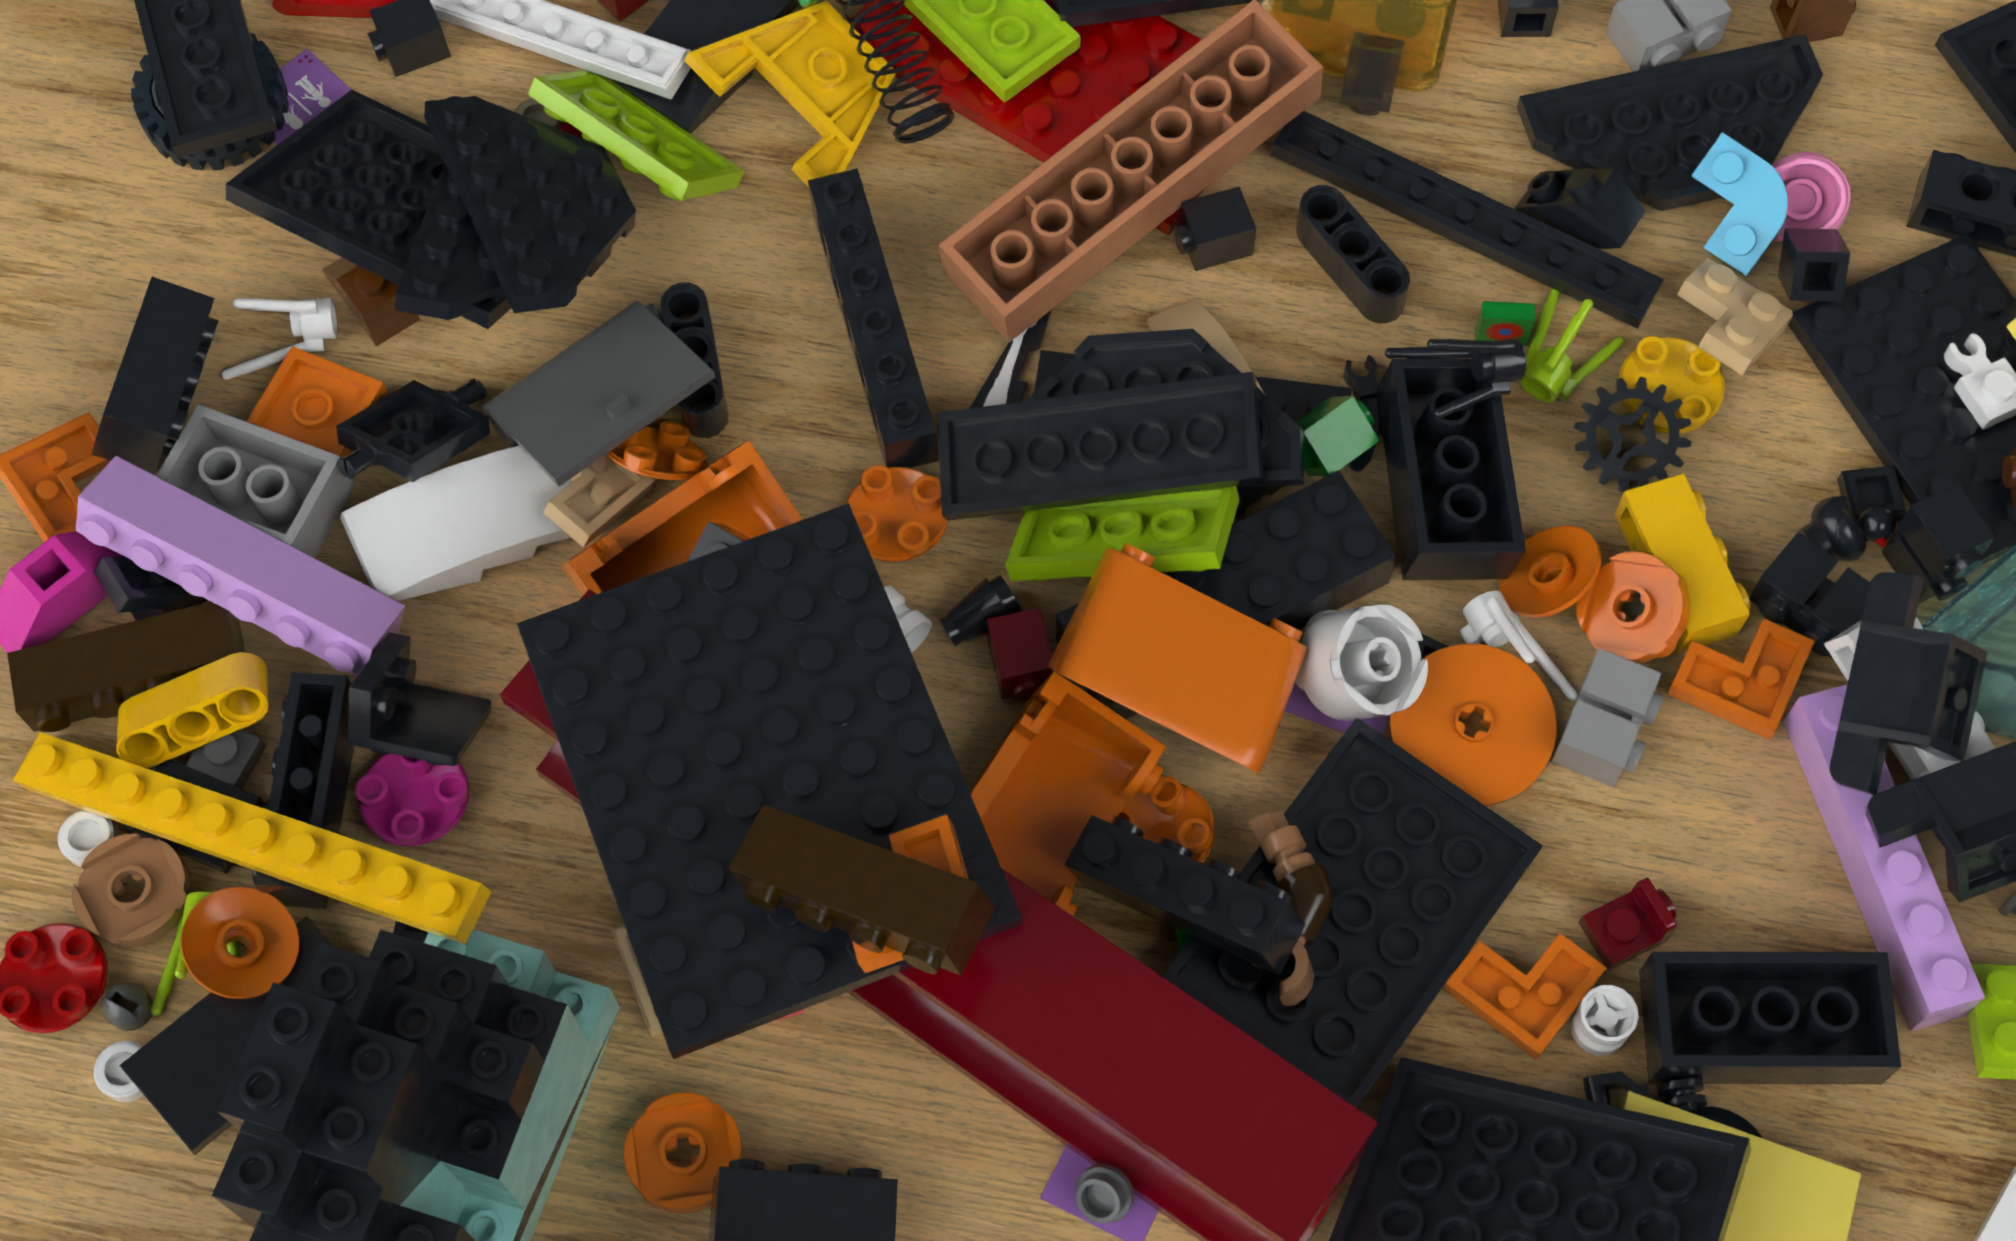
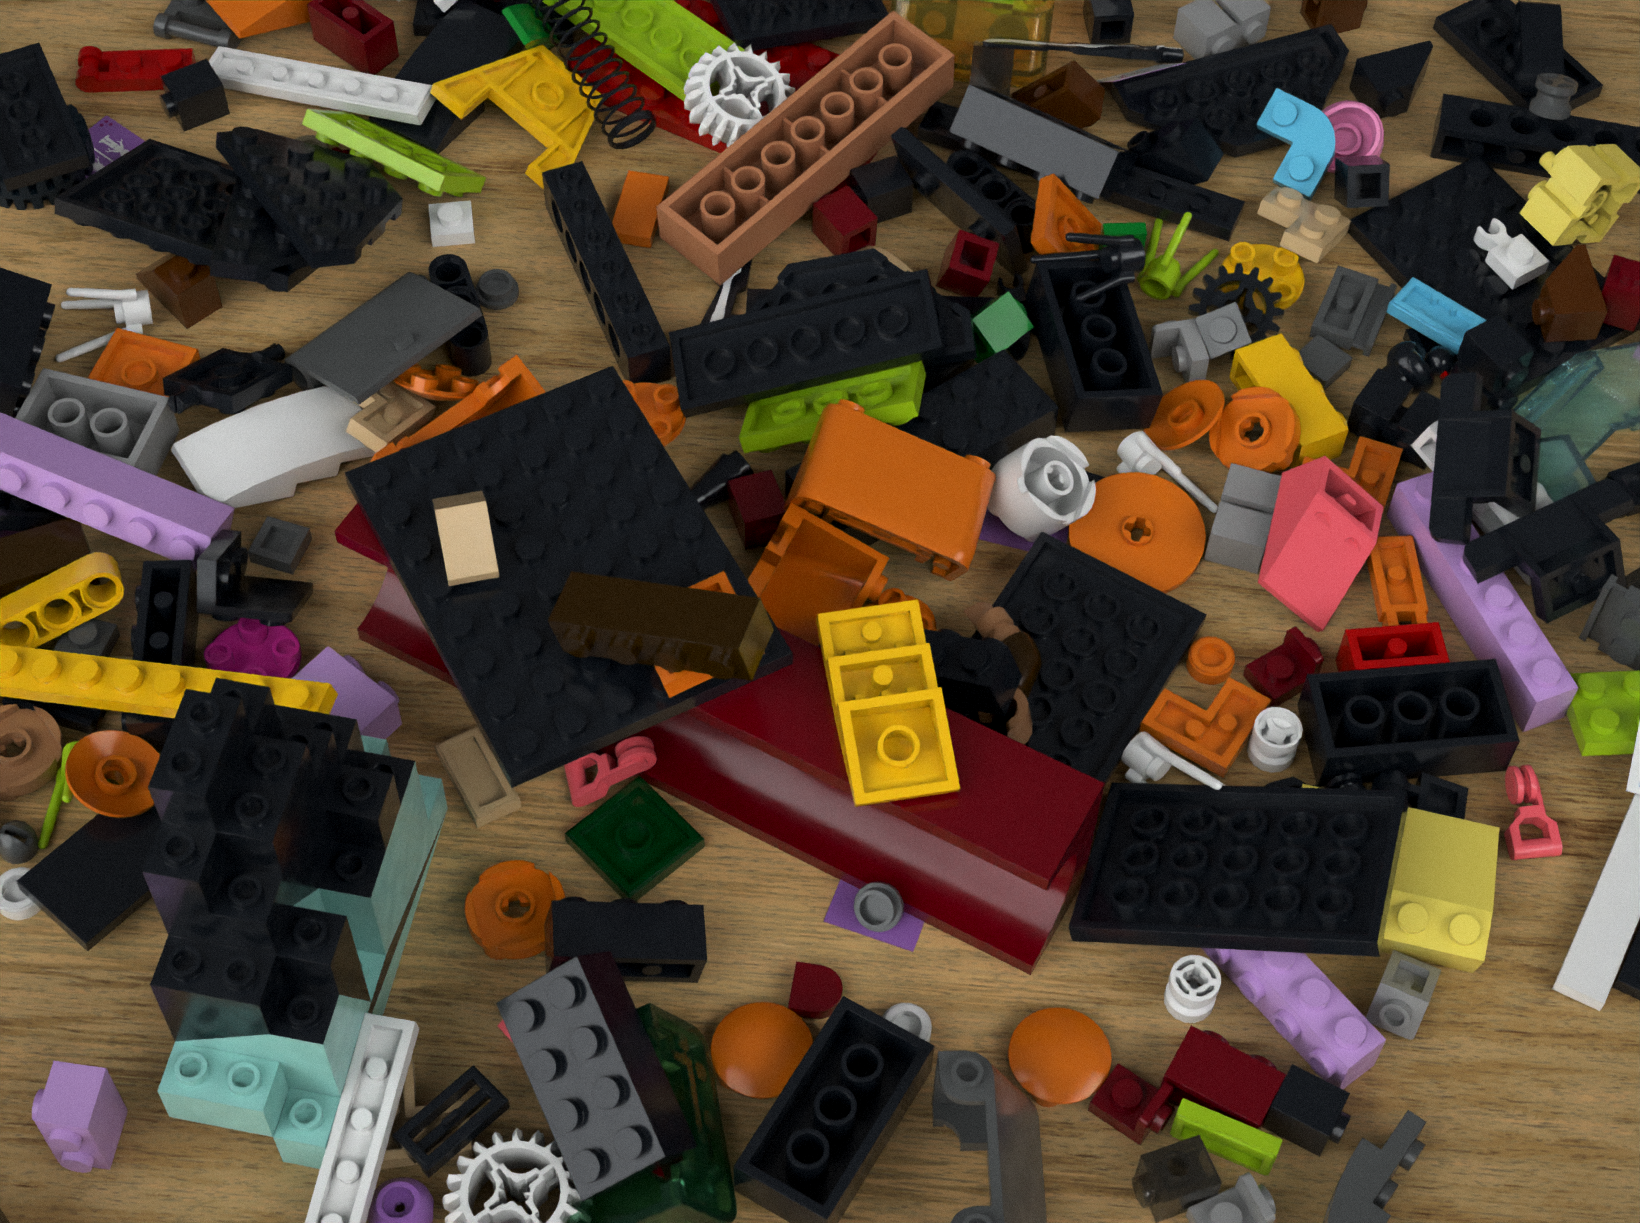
camera: 10 degrees left, 10 degrees down
(456, 650) = (280, 545): none -> dark grey plate
(511, 863) = (358, 695): none -> lavender brick
(646, 730) = (466, 538): none -> tan slope
(697, 230) = (451, 223): none -> white plate
(742, 327) = (497, 289): none -> dark grey plate
(831, 1073) = (634, 840): none -> dark green tile
(922, 226) = (636, 209): none -> orange tile
(1047, 60) = (743, 83): none -> white gear
(1127, 997) = (887, 703): none -> yellow slope
(1166, 269) = (844, 222): none -> dark red brick
(1309, 344) = (967, 264): none -> dark red brick
(1335, 292) = (959, 199): none -> black plate
(1420, 185) = (1041, 143): none -> black slope
(1433, 298) = (1056, 215): none -> orange plate
(1449, 120) = (1066, 94): none -> reddish brown slope
(1456, 1029) = (1153, 760): none -> white plant
(1493, 52) = (1158, 53): none -> black sword
(1541, 901) = (1210, 660): none -> orange tile
(1551, 88) = (1137, 72): none -> white sticker
(1565, 478) = (1184, 344): none -> light grey bracket
(1612, 464) = (1223, 330): none -> plate
(1690, 763) = (1318, 539): none -> coral slope
(1732, 506) = (1324, 360): none -> dark grey tile
(1761, 924) = (1391, 647): none -> red brick
(1778, 440) = (1353, 310): none -> dark grey plate
(1782, 830) = (1397, 581): none -> orange hinge
(1783, 1117) = (1428, 793): none -> black plate
(1869, 118) = (1390, 78): none -> black slope
(1880, 462) = (1433, 314): none -> medium azure plate
(1901, 1110) = (1524, 786): none -> coral piece

